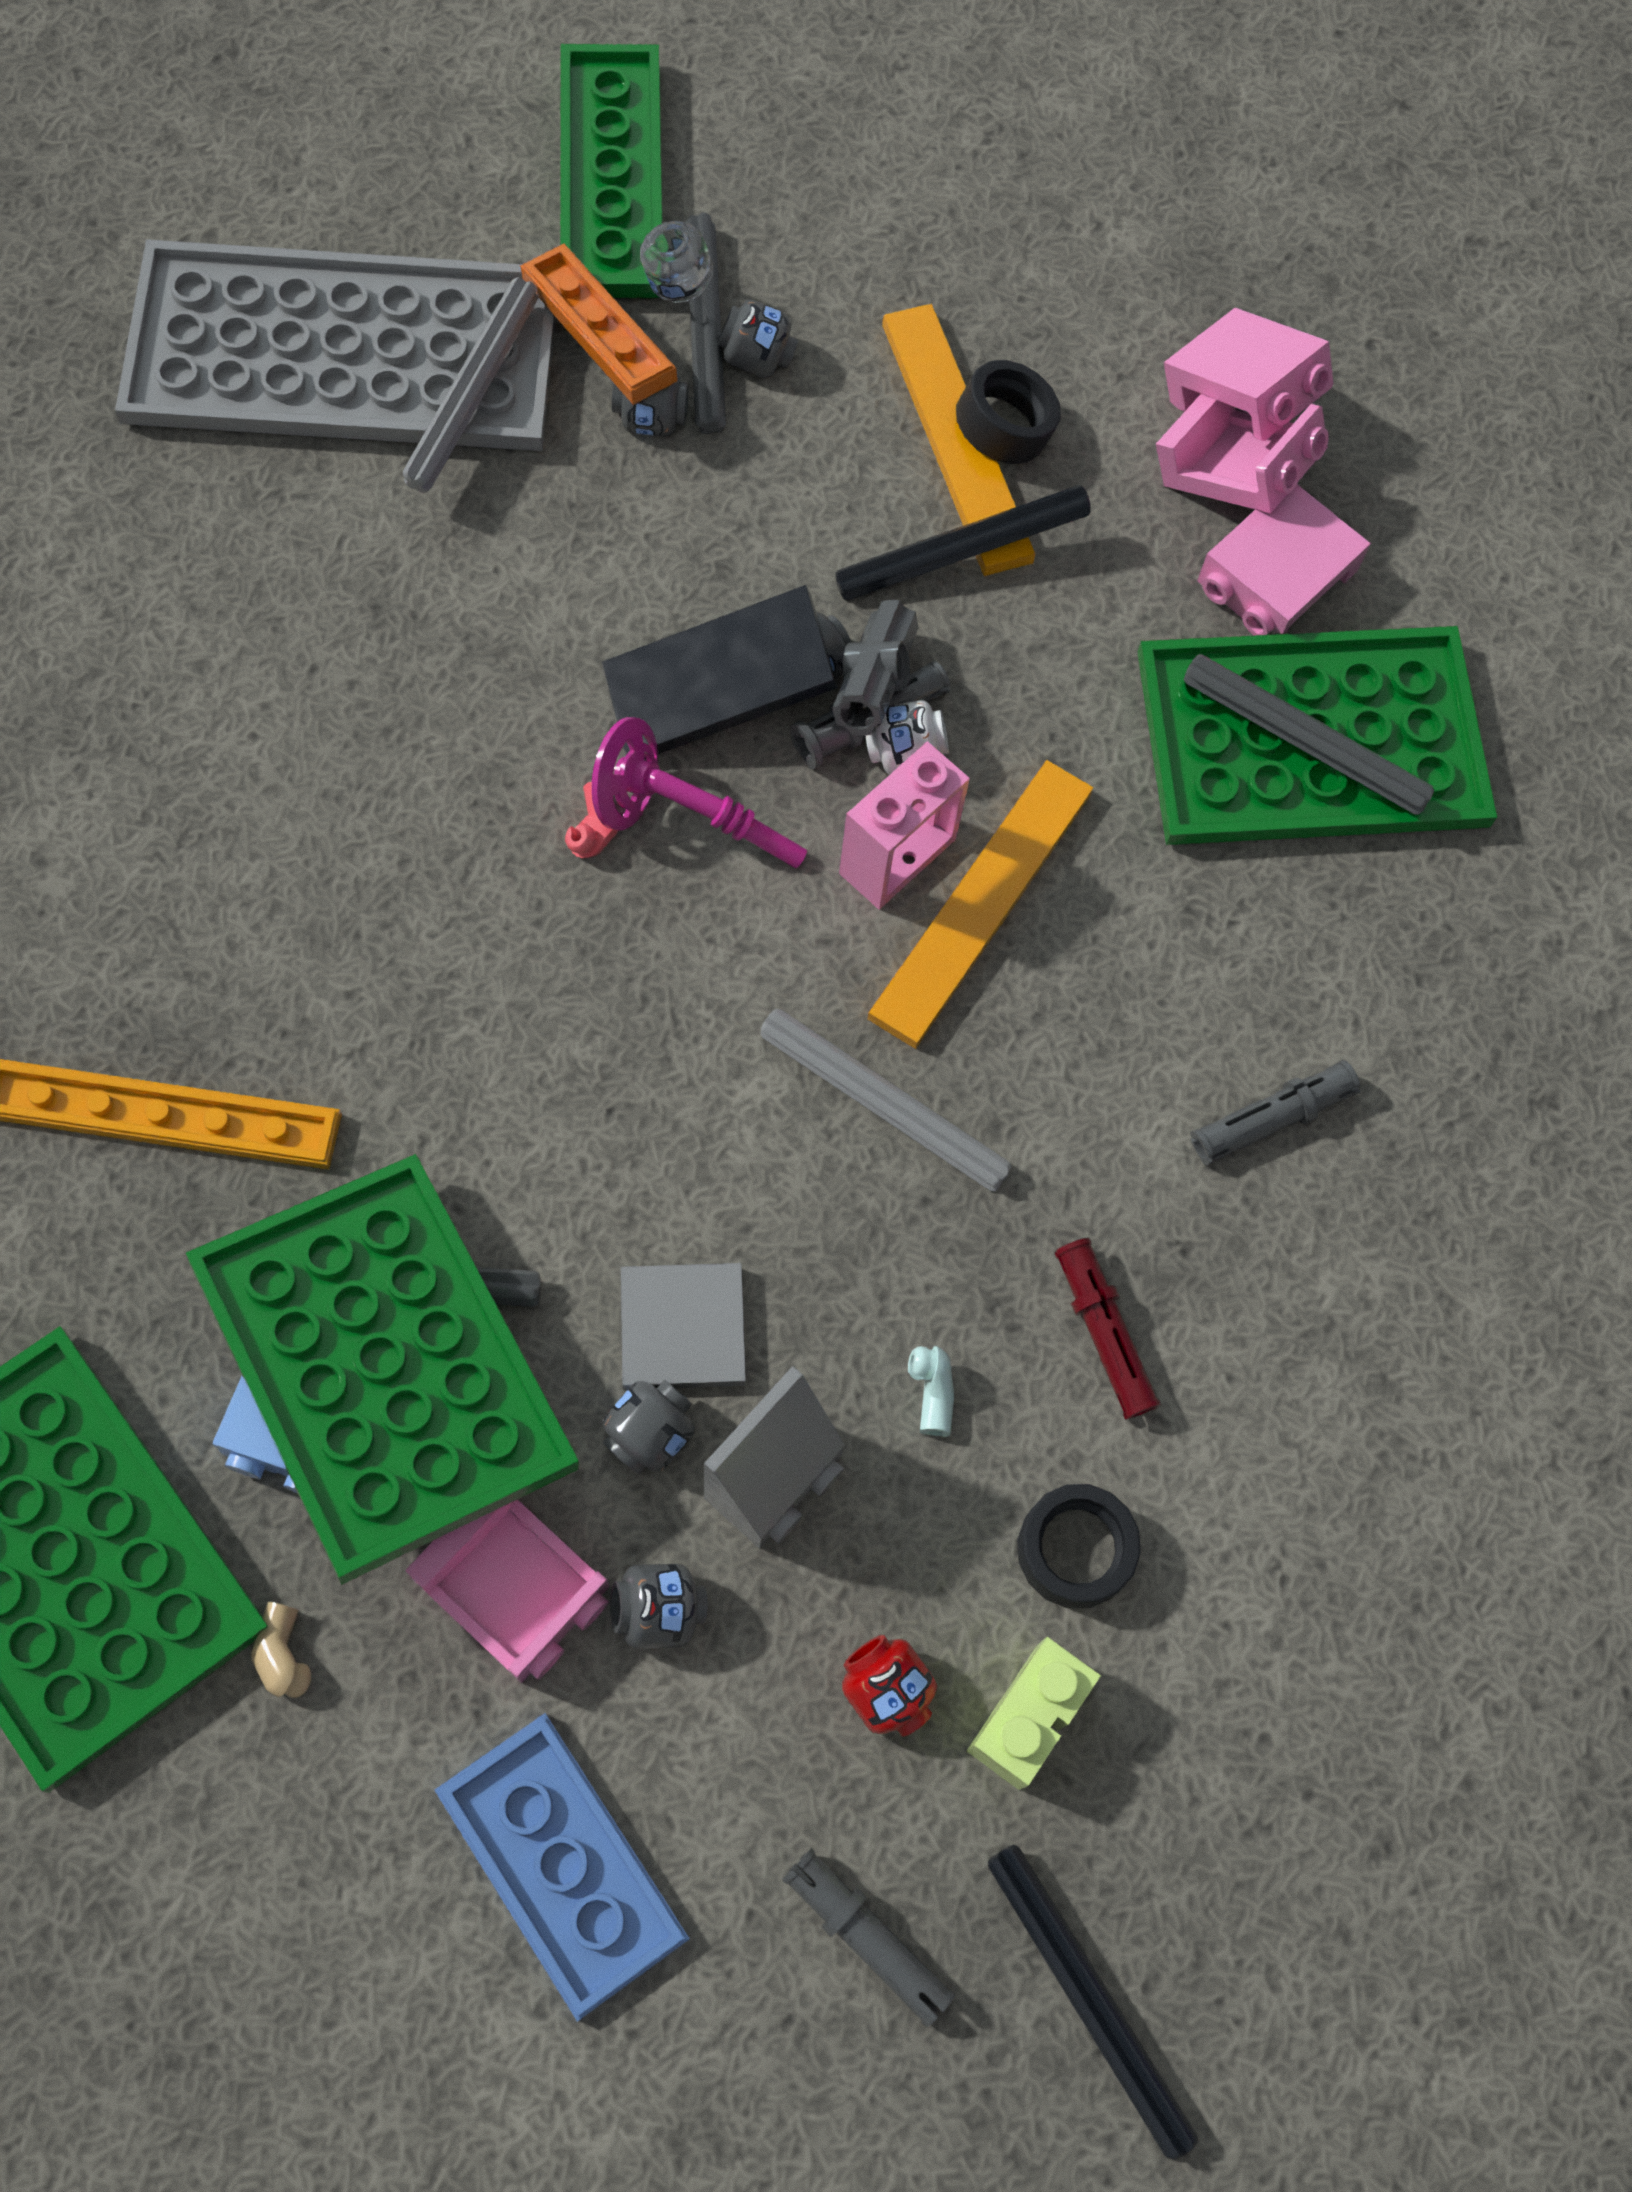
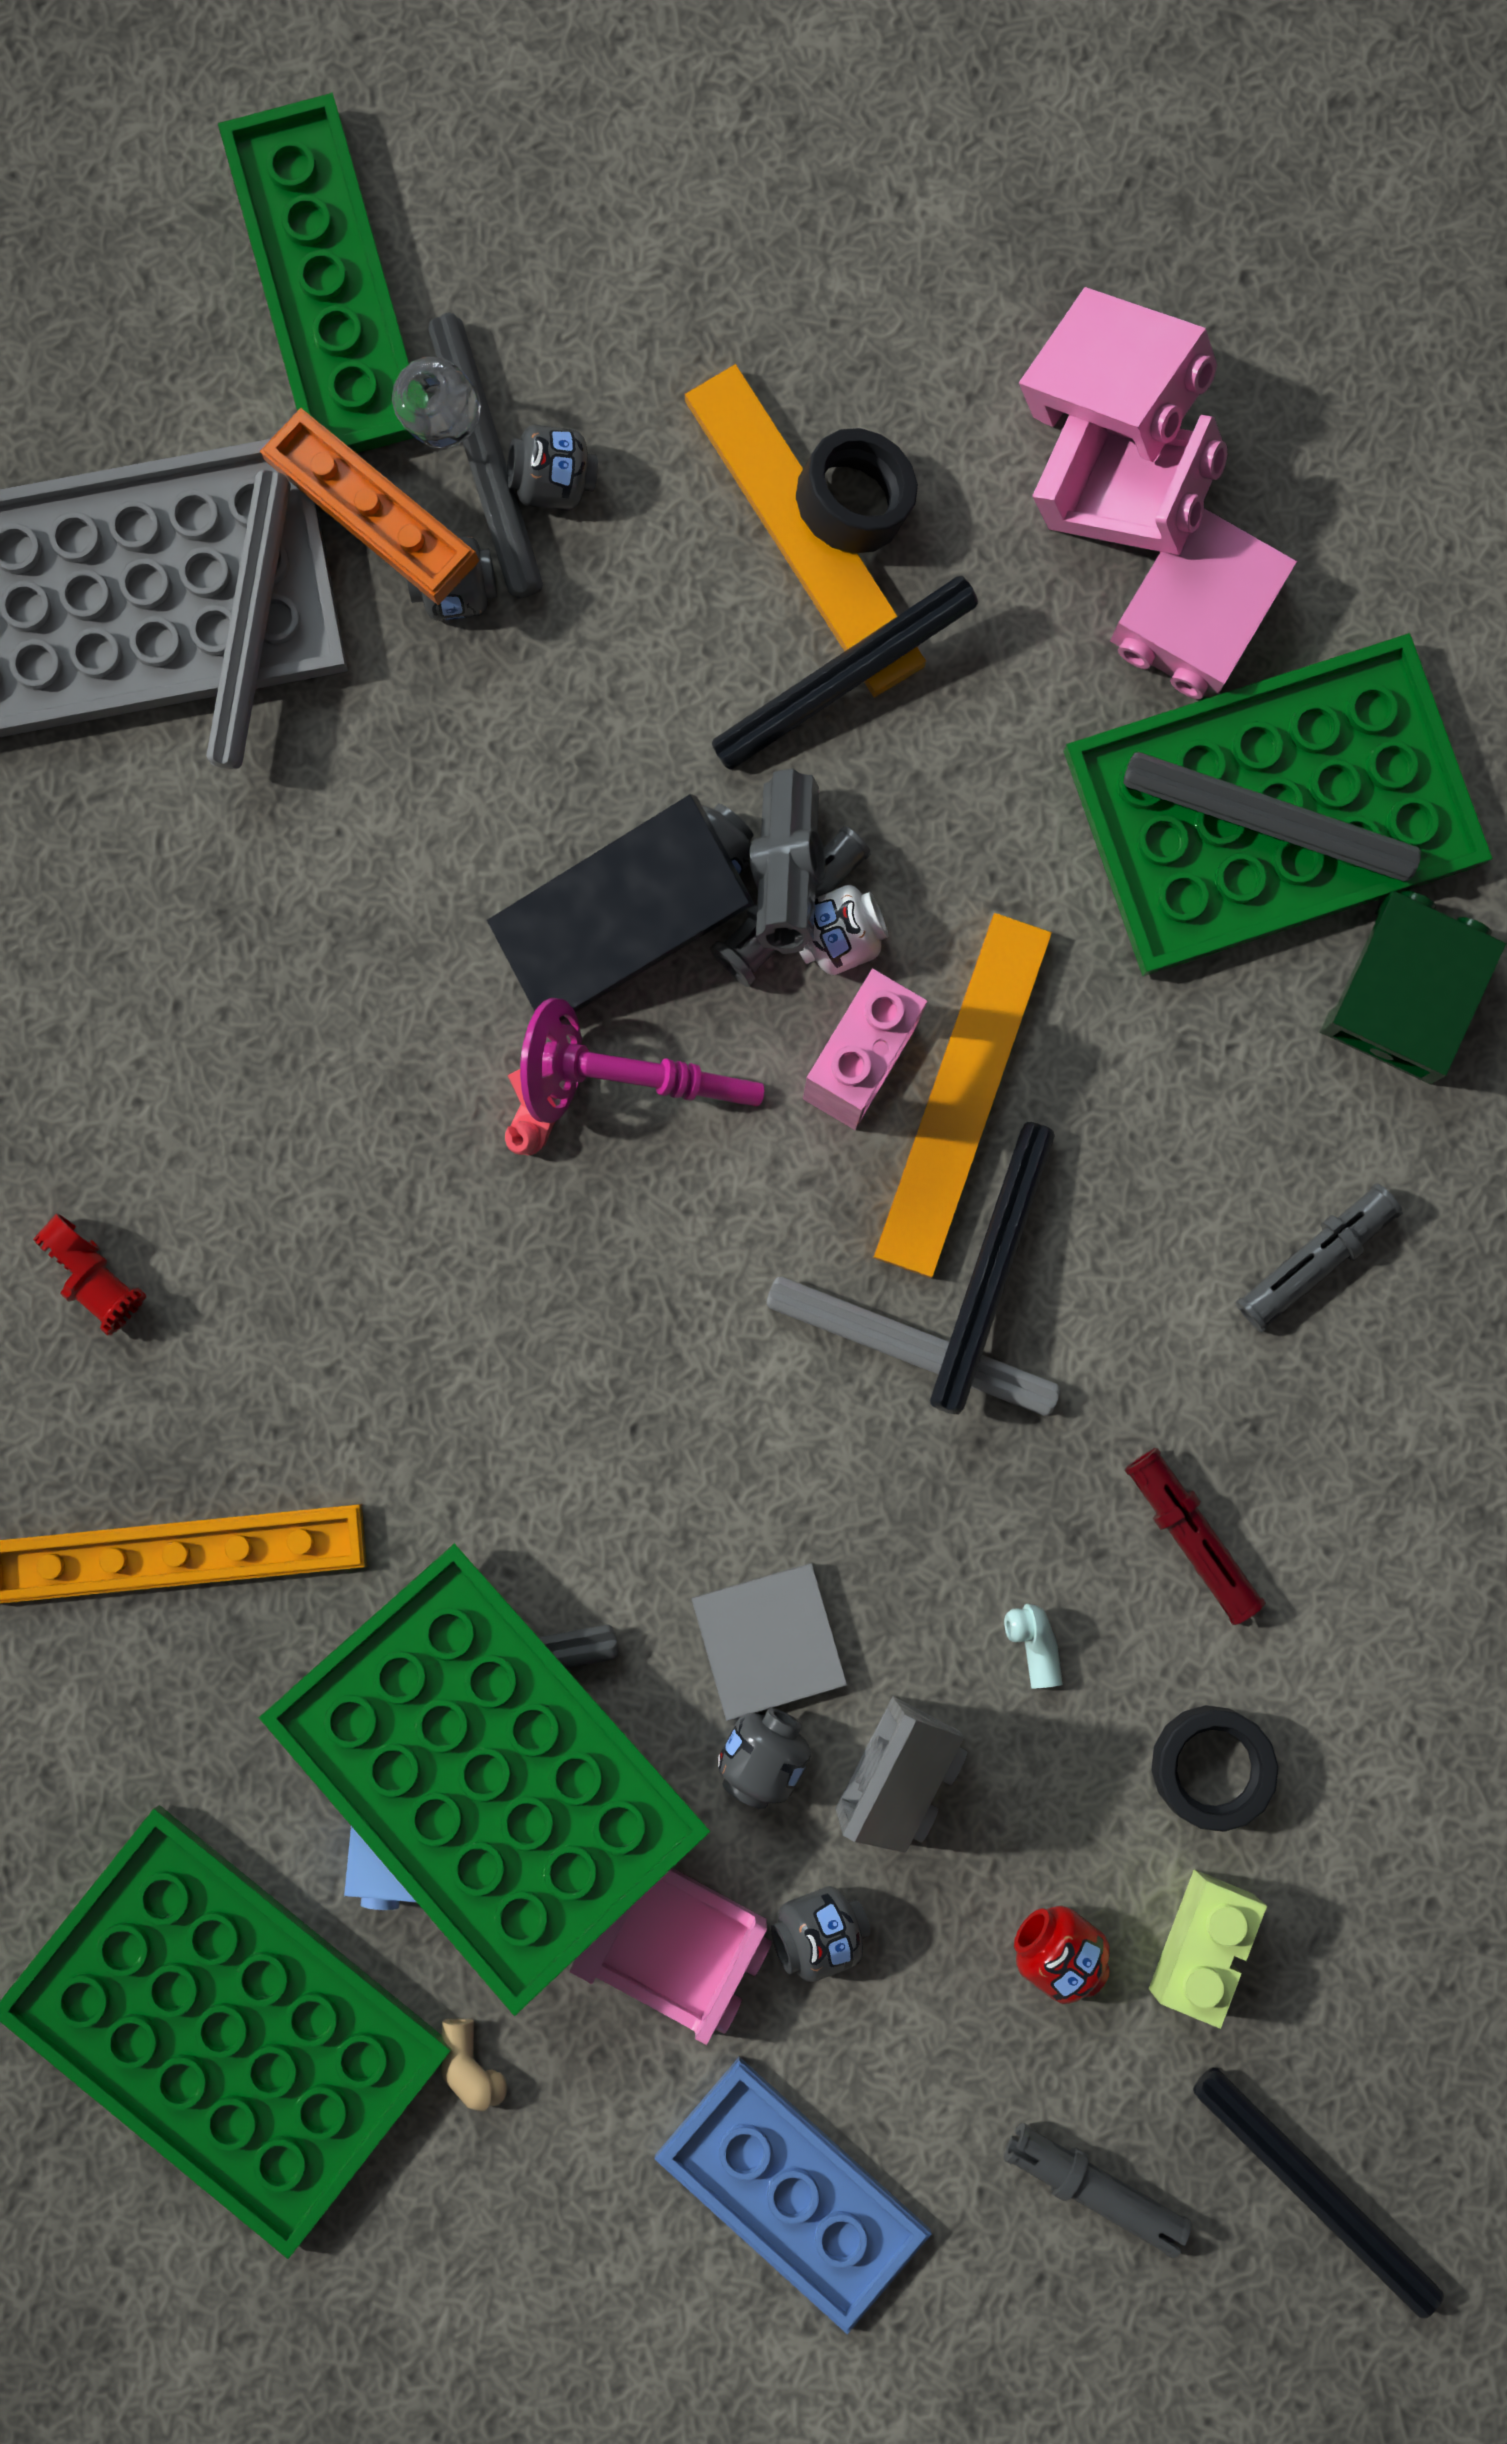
camera: 10 degrees left, 15 degrees up
(161, 859) = (90, 1279): none -> red connector
(972, 1046) = (992, 1268): none -> black axle
(1405, 904) = (1415, 986): none -> dark green panel

